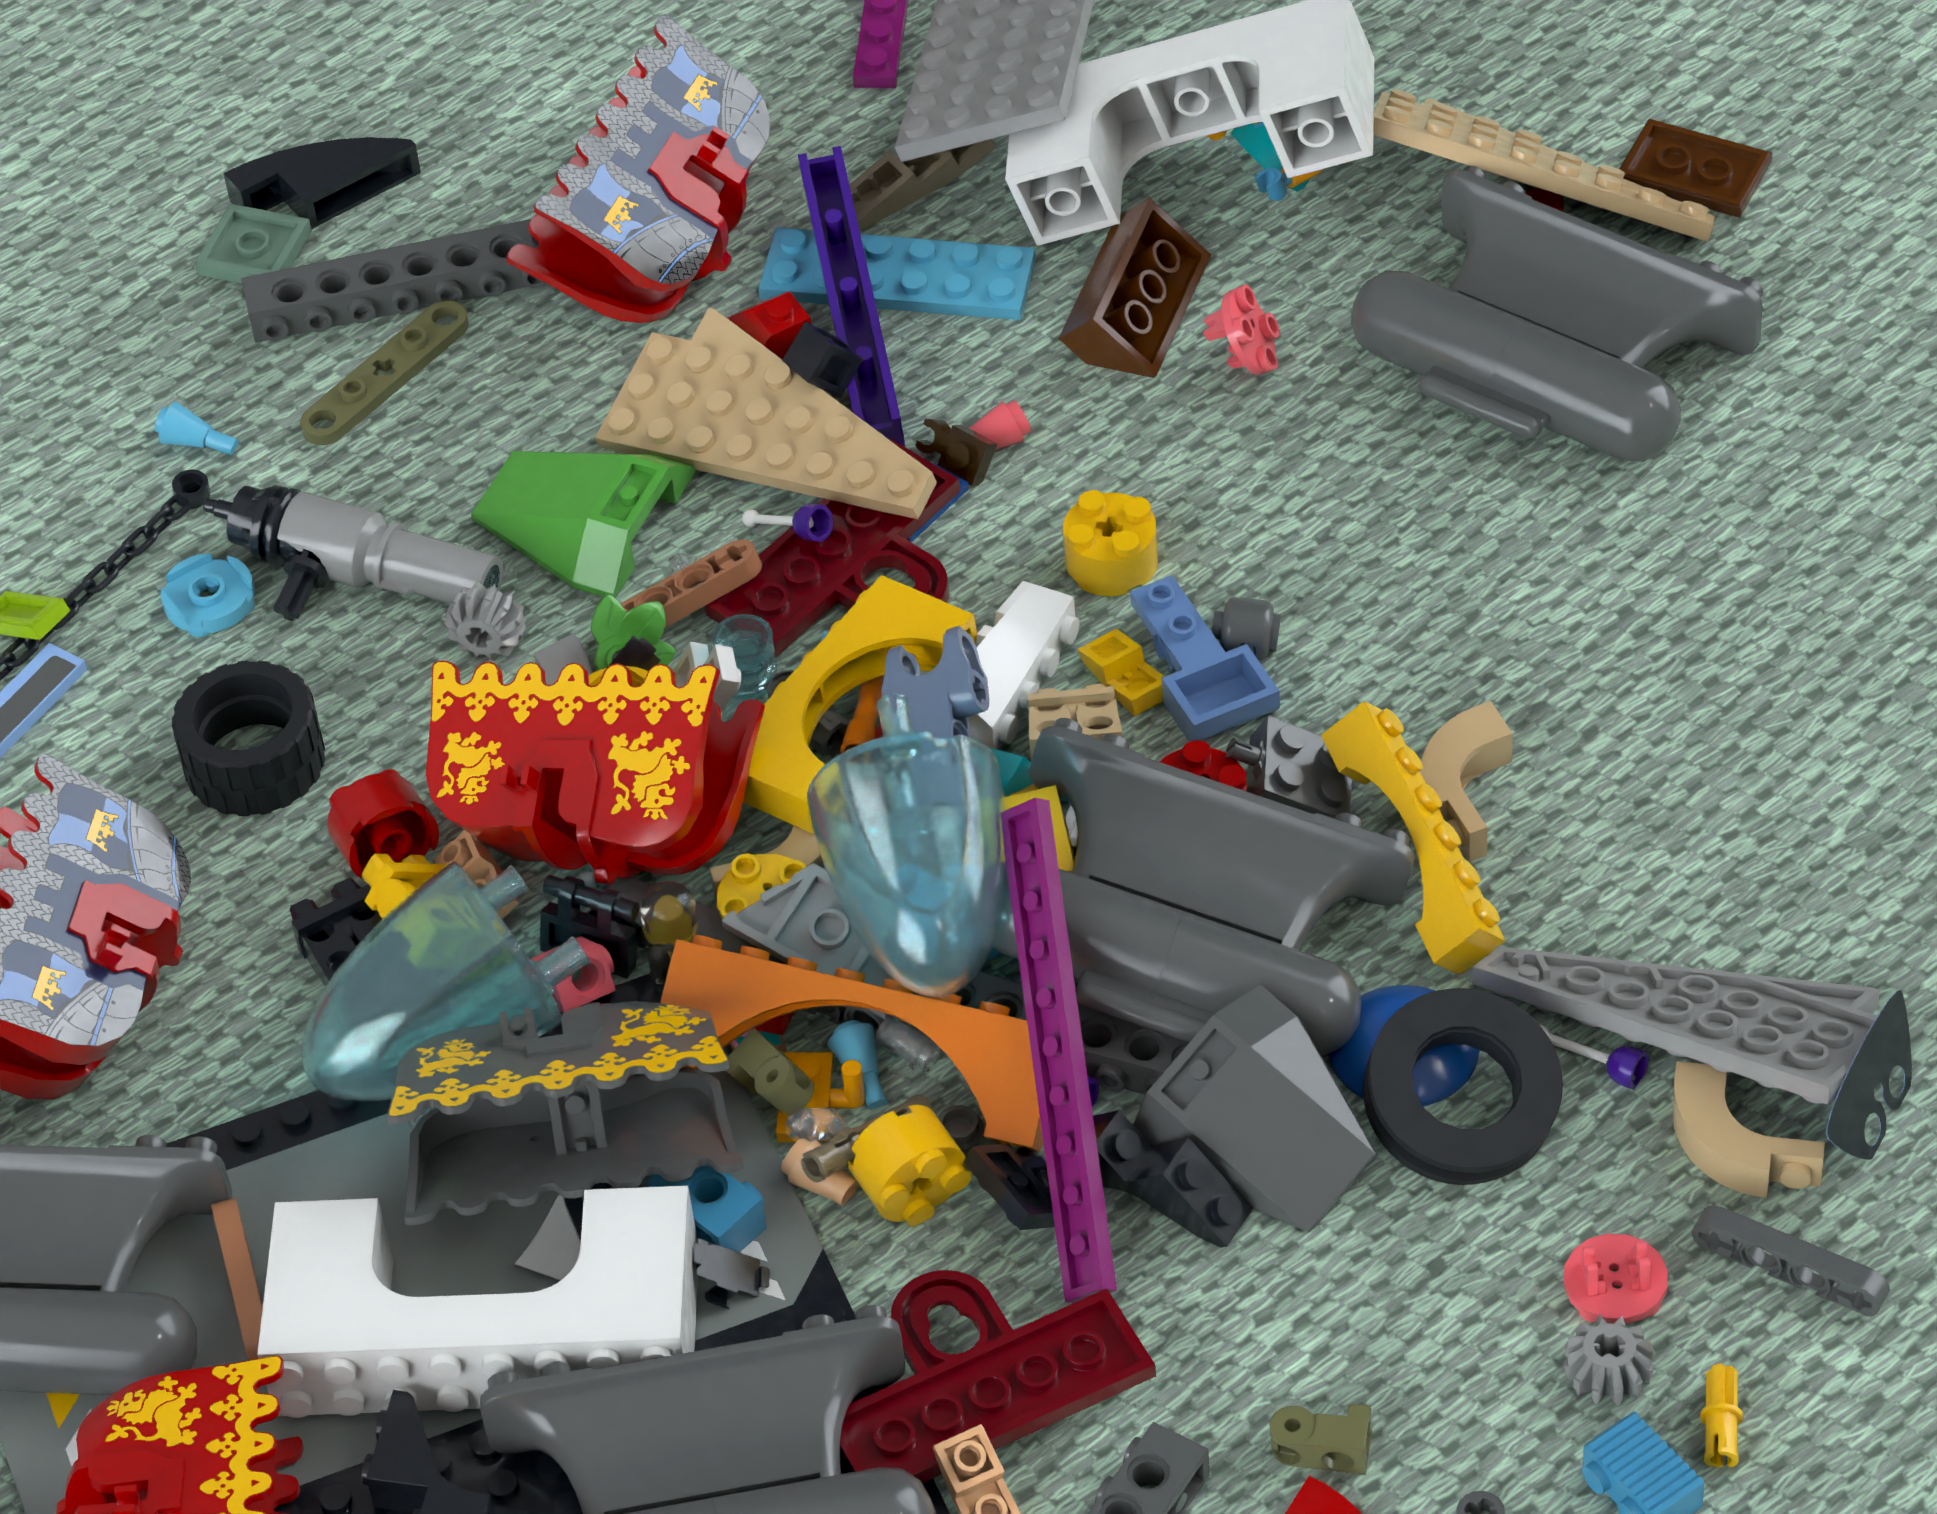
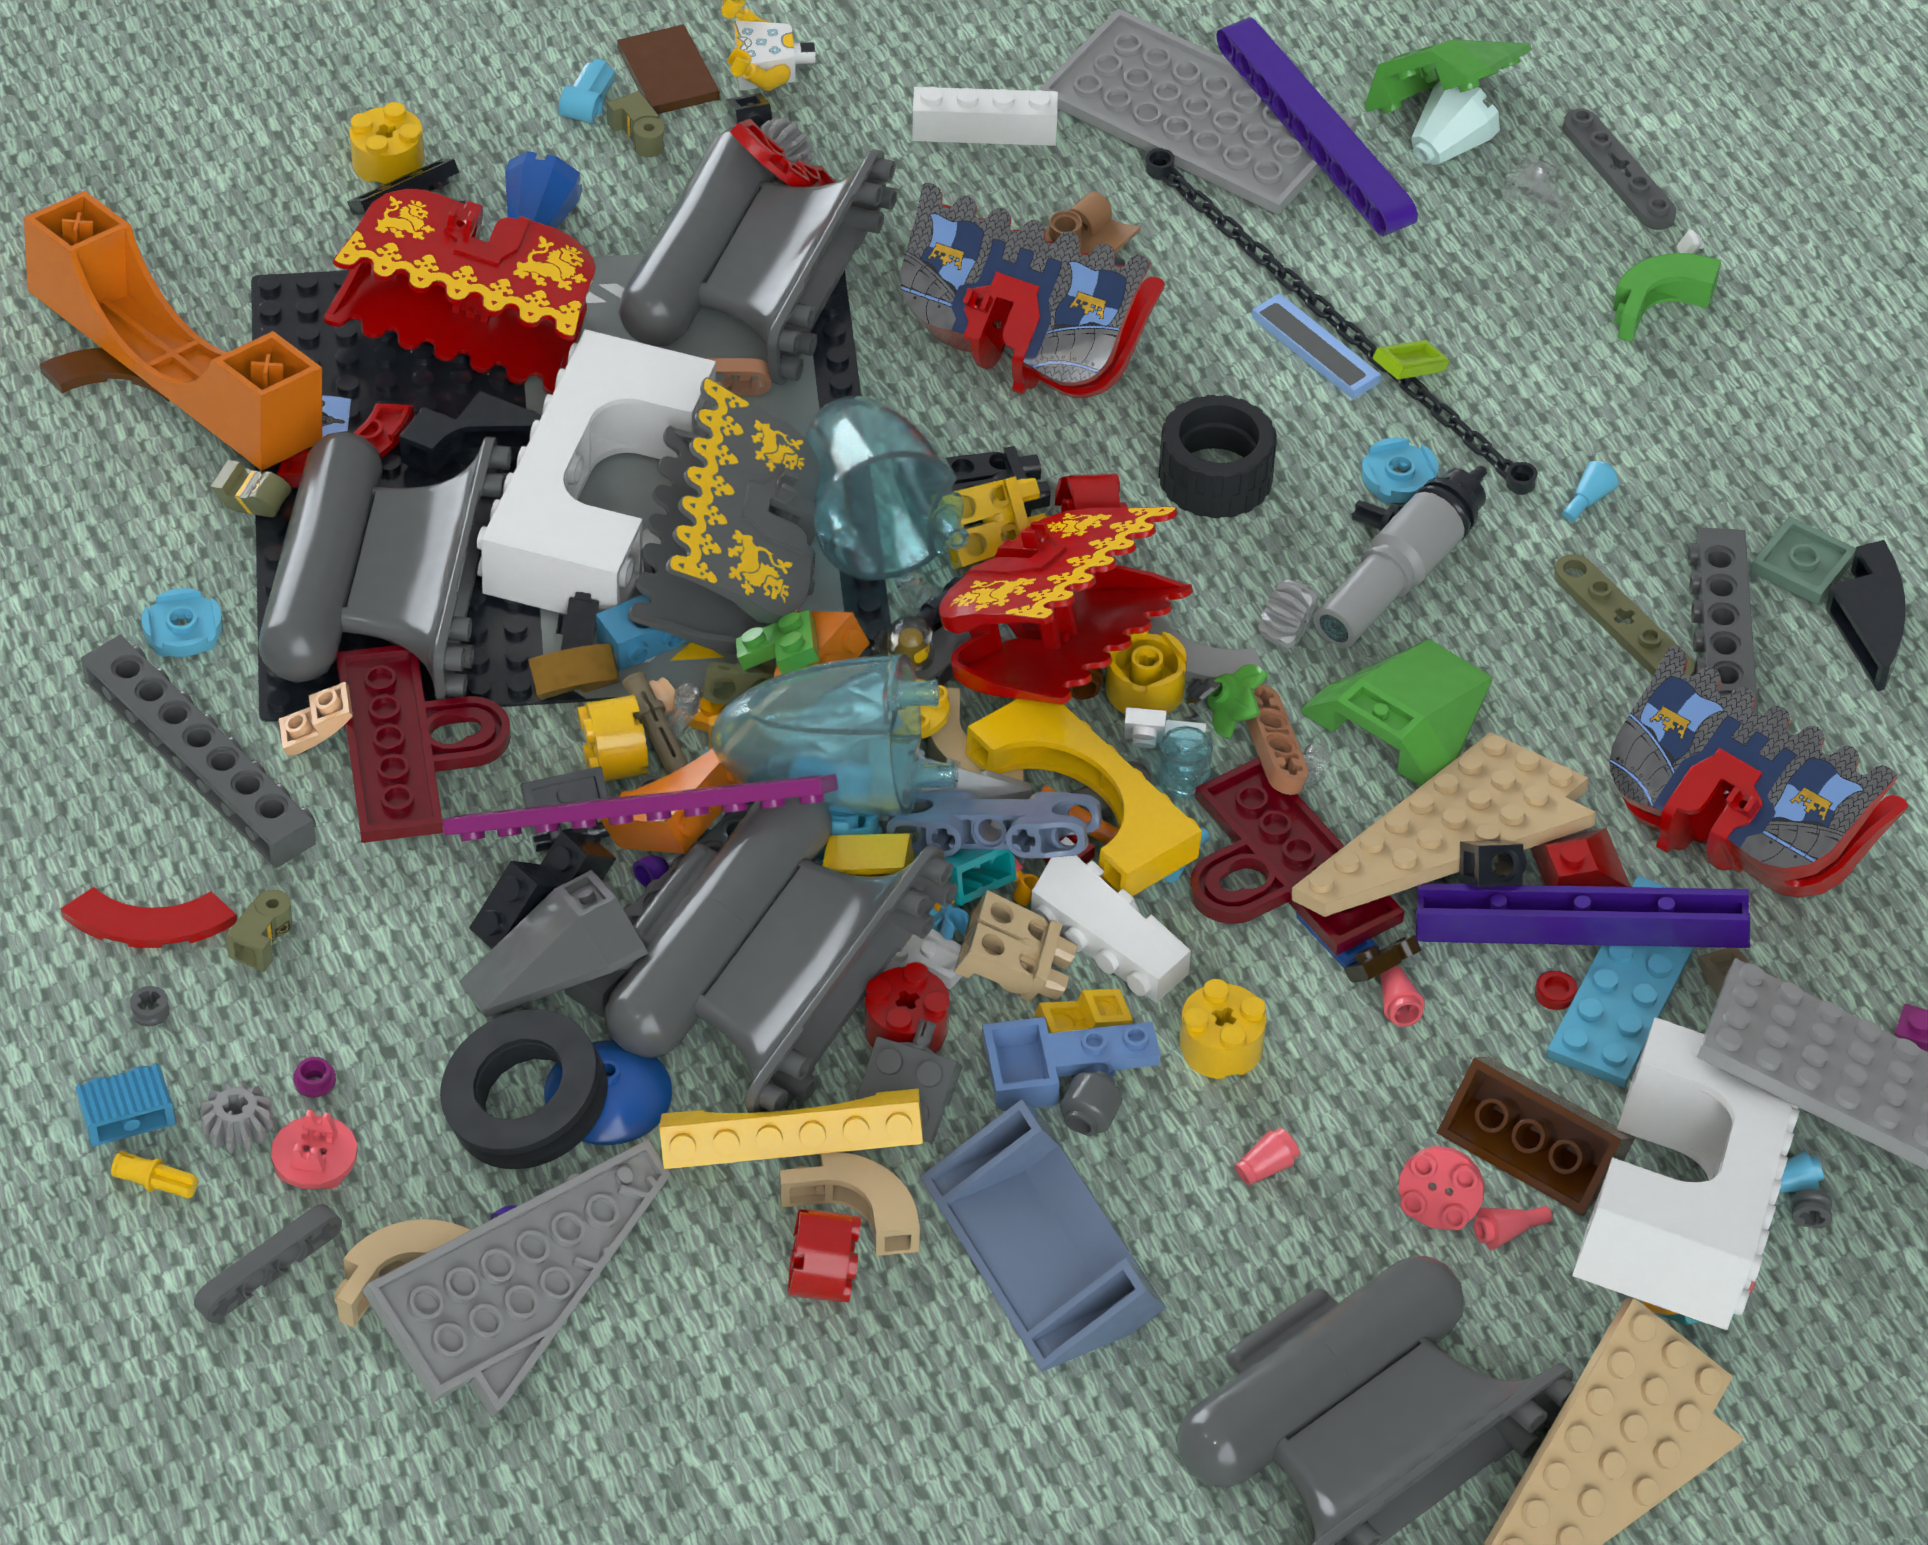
camera: 100 degrees right, 0 degrees up
(593, 981) = (895, 593): coral brick -> none
(730, 994) = (789, 641): none -> bright green plate
(805, 1251) = (574, 669): none -> pearl gold slope
(810, 522) = (1315, 822): dark purple hinge -> none
(933, 325) = (1555, 990): none -> red tile
(1252, 481) = (1268, 1156): none -> coral cone
(1269, 296) = (1501, 1225): none -> coral cone
(1443, 620) = (1041, 1239): none -> sand blue slope
(1513, 1302) = (311, 1068): none -> magenta plate
(1560, 771) = (823, 1255): none -> red brick
(1882, 1049) = (371, 1327): black piece -> none

